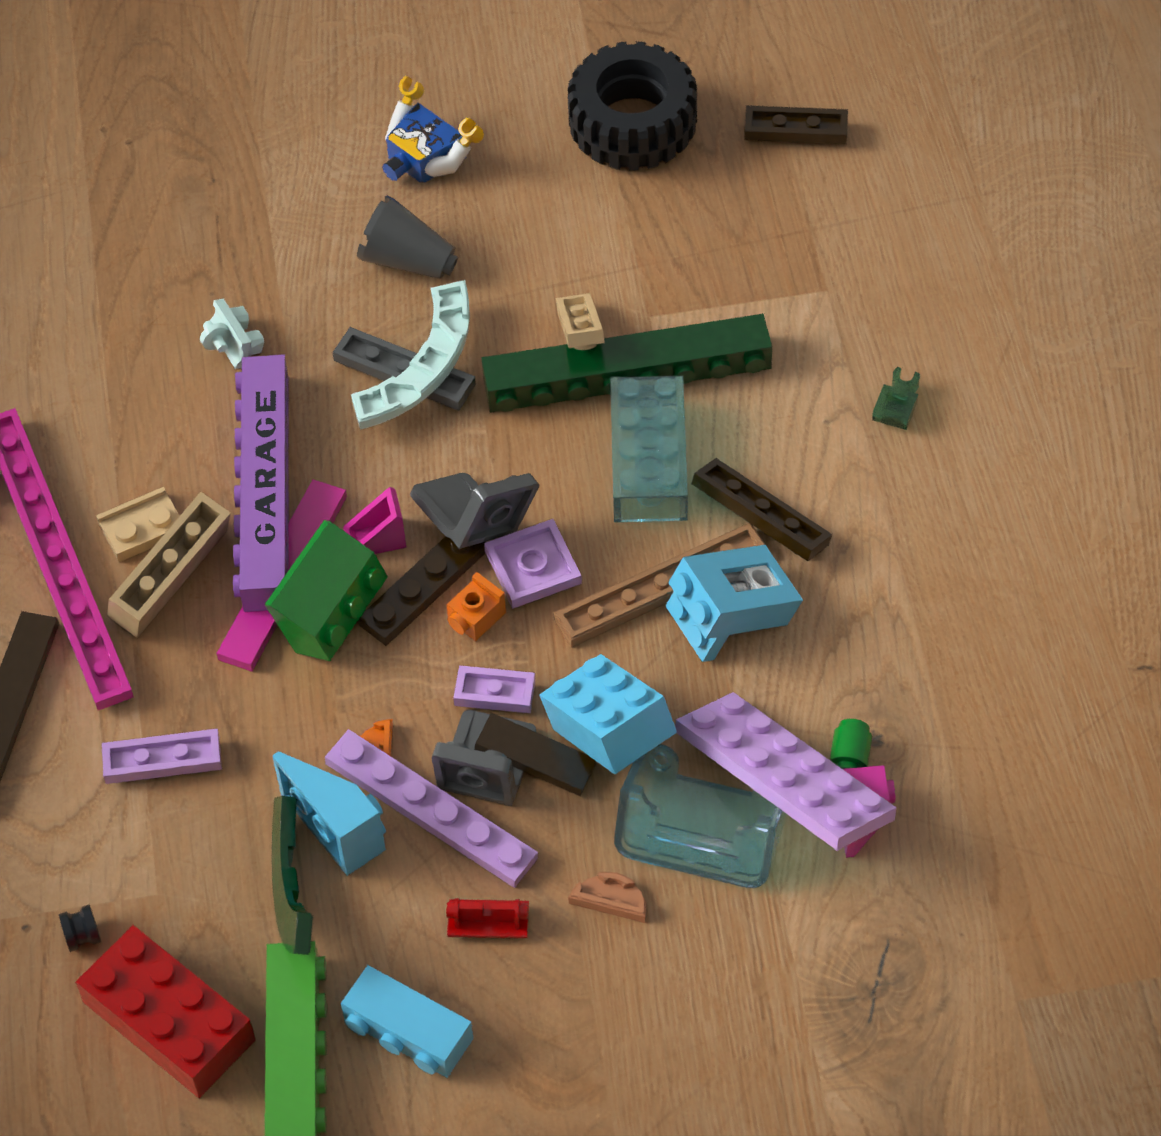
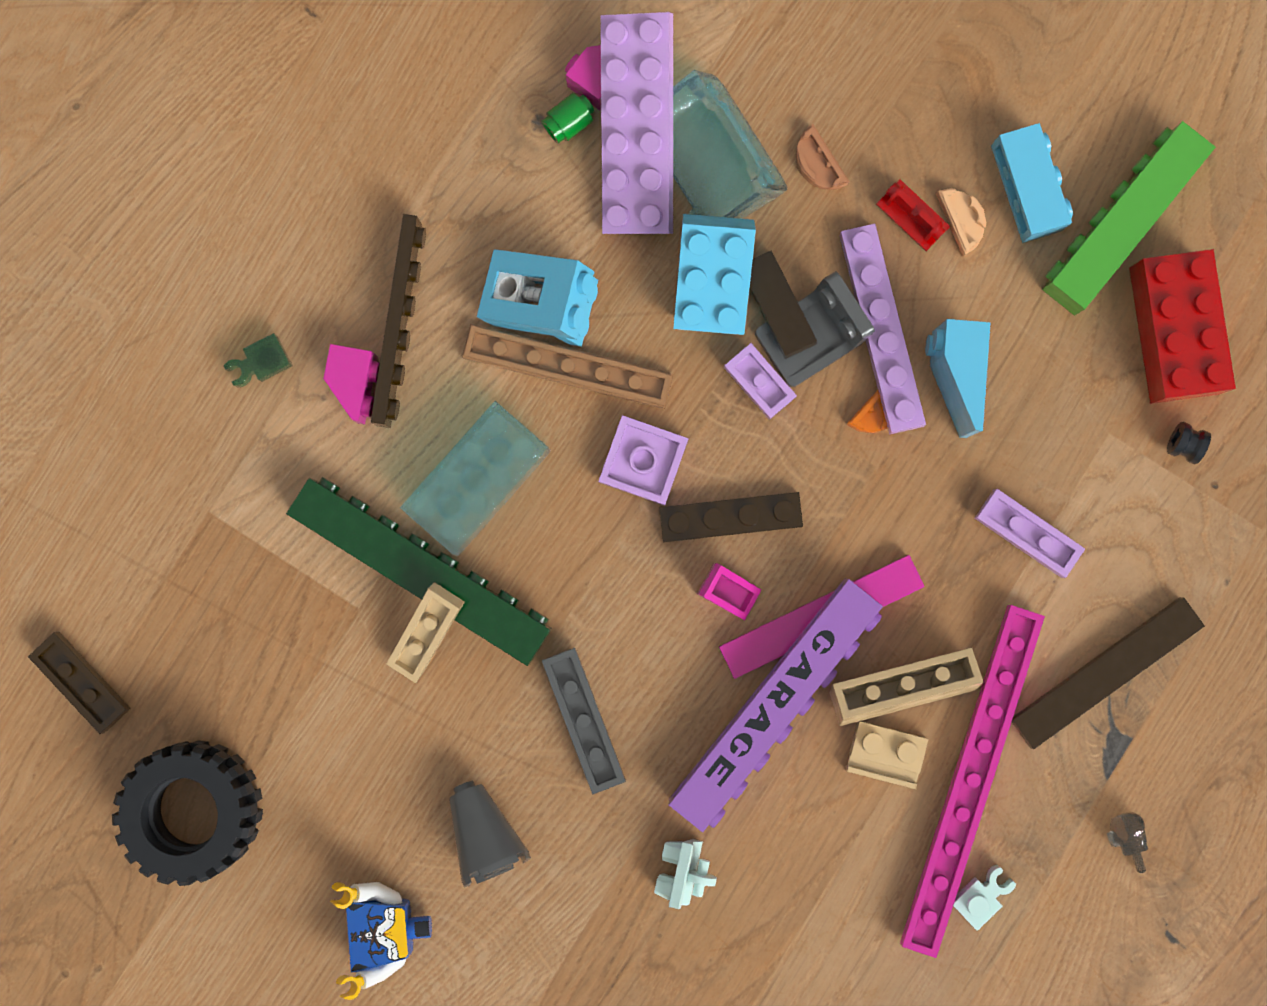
camera: 140 degrees left, 30 degrees up
(291, 917) = (1038, 339): dark green tile -> none
(325, 592) = (817, 554): green slope -> none
(428, 366) = (564, 699): light aqua tile -> none
(441, 955) = (964, 216): none -> light nougat tile
(474, 511) = (652, 541): dark grey piece -> none
(476, 607) = (706, 466): orange brick -> none
(761, 509) = (445, 357): dark brown plate -> none
(816, 439) = (351, 378): none -> dark pink slope
(829, 507) = (396, 336): none -> dark brown plate

